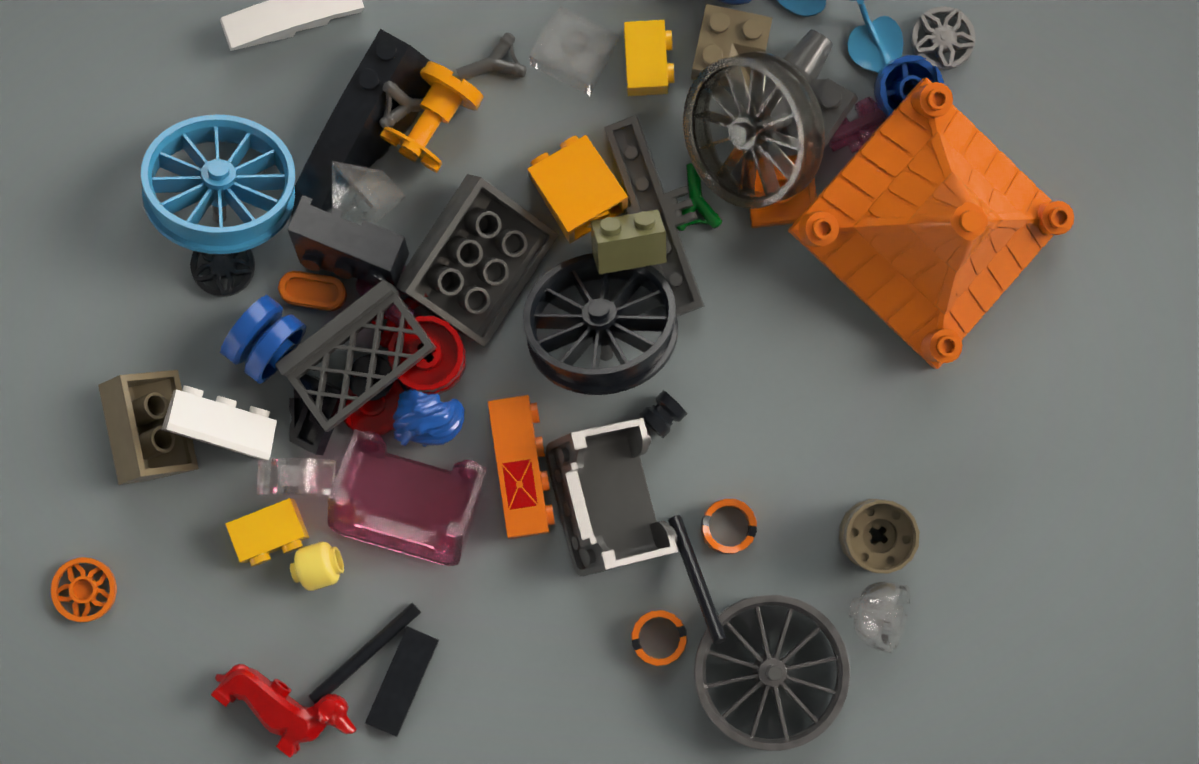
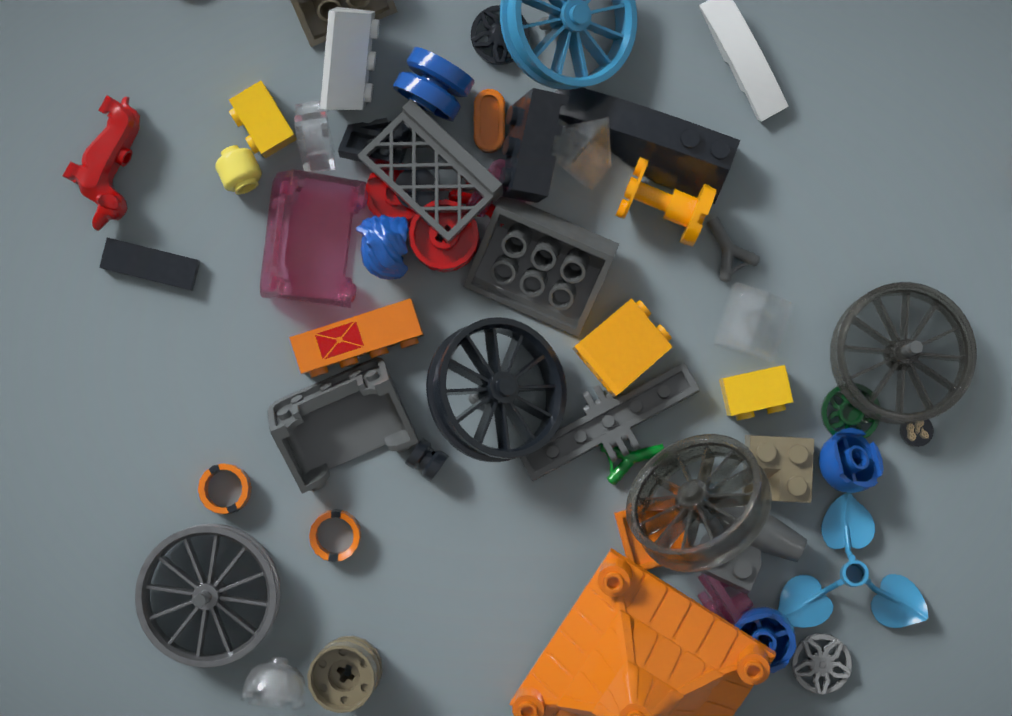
camera: 80 degrees right, 5 degrees up
(366, 652) = (169, 226): black bar -> none
(405, 106) = (672, 176): dark grey piece -> none
(628, 241) = (576, 403): olive brick -> none
(697, 580) = (278, 515): black bar -> none

